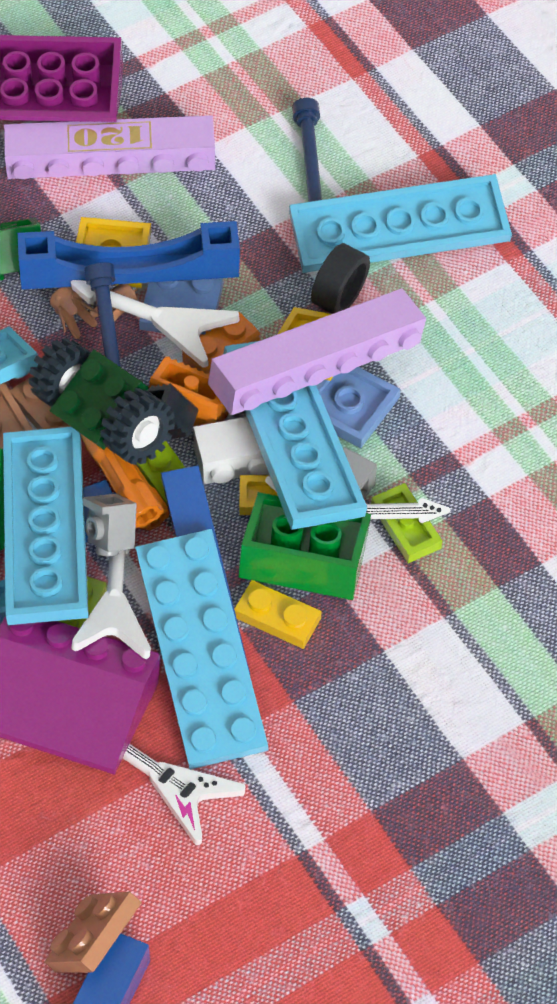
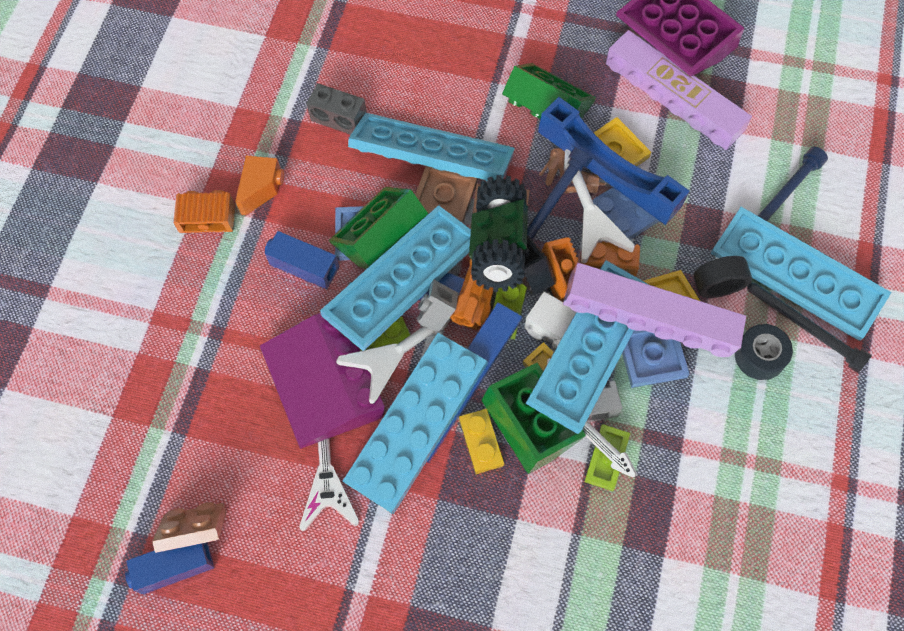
camera: 50 degrees right, 10 degrees up
(448, 315) = (769, 342): none -> black wheel
(521, 257) = (854, 357): none -> black piece

